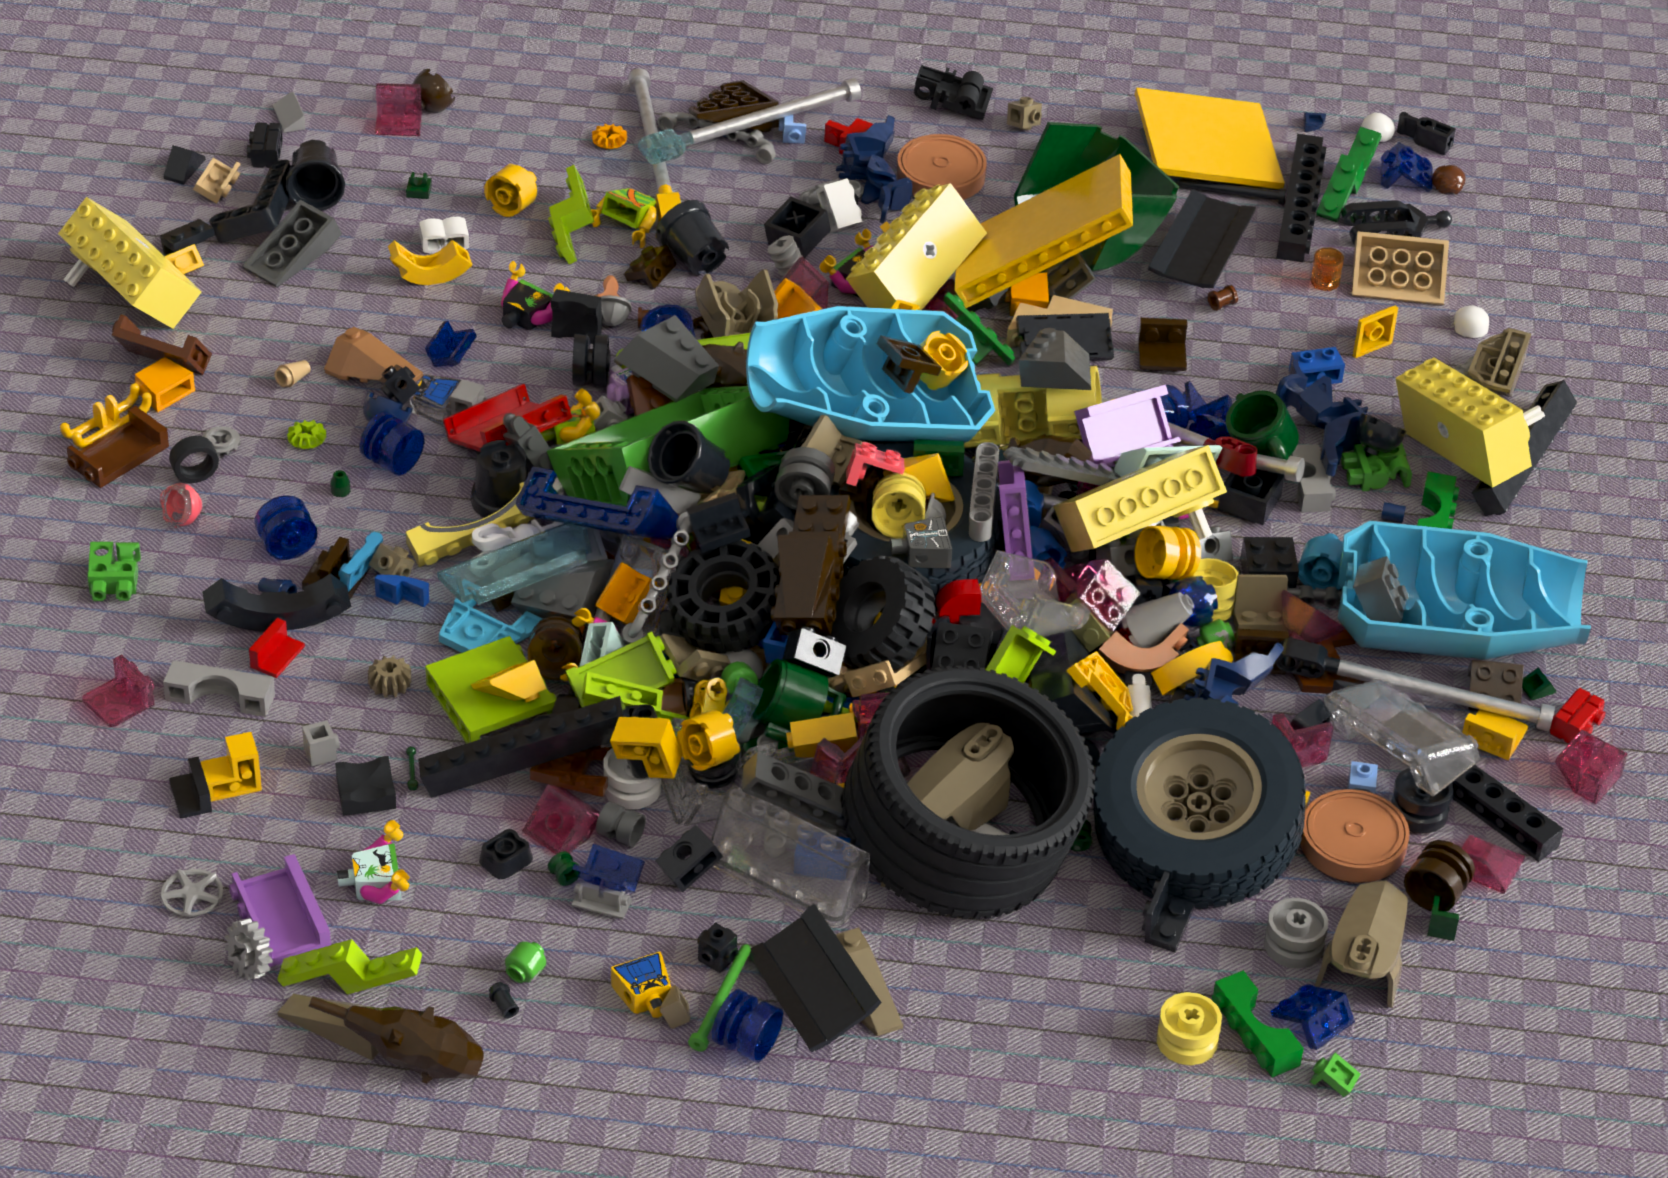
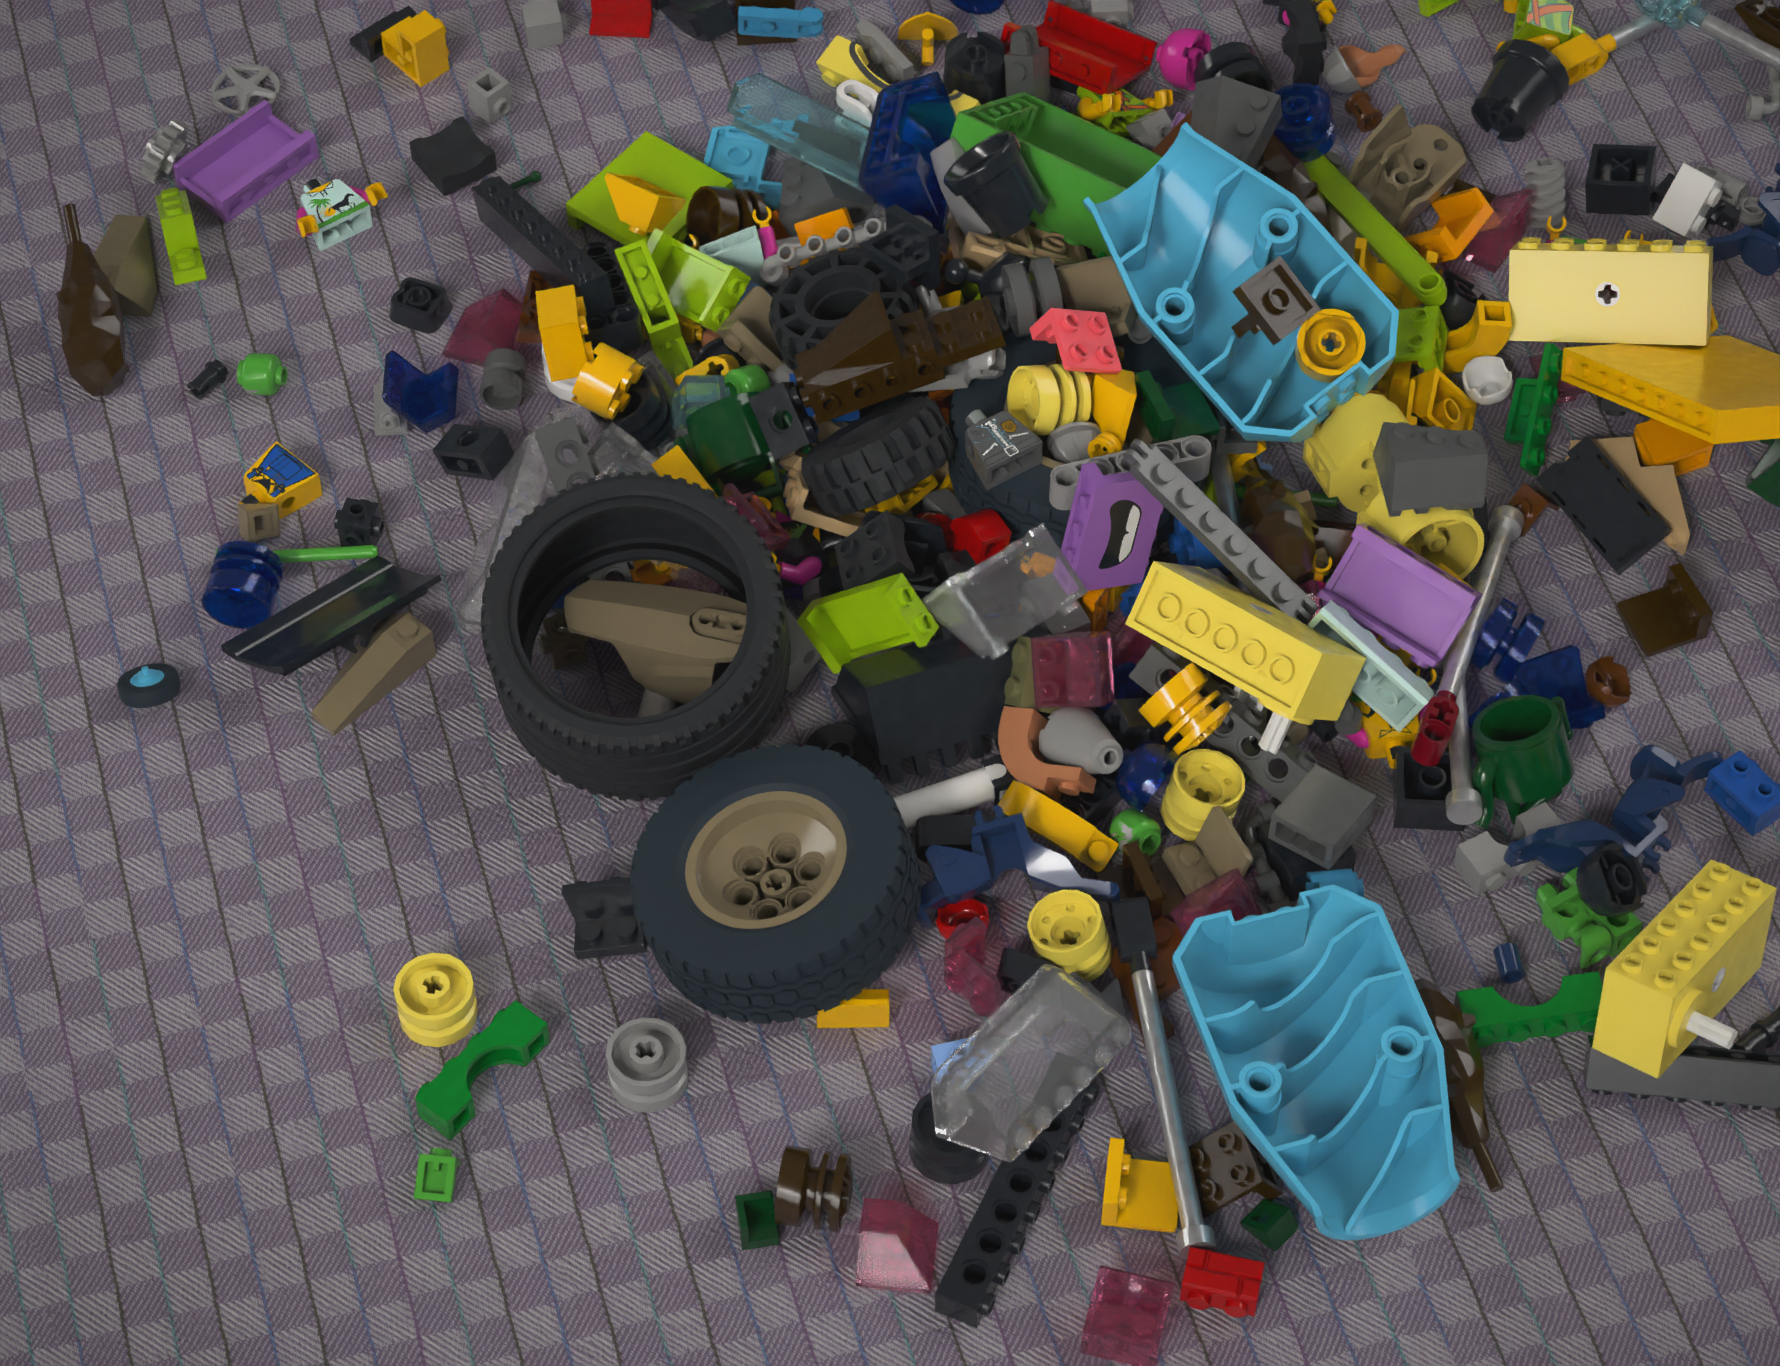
camera: 70 degrees right, 10 degrees up
(389, 676) = (628, 114): dark tan gear -> none
(391, 561) = (797, 48): dark tan brick -> none
(396, 587) = (764, 61): blue slope -> none
(430, 496) = (927, 28): none -> yellow shield
(437, 517) = (884, 52): none -> light grey hinge
(546, 376) = (1181, 55): none -> dark pink cylinder
(561, 866) = (420, 354): dark green wheel -> none
(651, 265) = (1457, 81): dark brown bracket -> none
(807, 1115) = (148, 685): none -> black wheel
(957, 501) = (1103, 440): none -> yellow bush
(1069, 277) = (1725, 471): dark grey slope -> none
(1101, 678) = (943, 732): yellow wing -> none
(1207, 392) = (1608, 682): none -> reddish brown hair
(1269, 533) = (1322, 817): none -> dark grey brick
(1293, 685) = (1071, 933): none -> light yellow wheel
(1319, 1011) = (526, 1125): clear blue bracket -> none
(1354, 835) = (852, 1082): nougat brick -> none
(1370, 936) = (653, 1141): dark tan piece -> none
(1380, 591) = (1256, 960): dark grey brick -> none

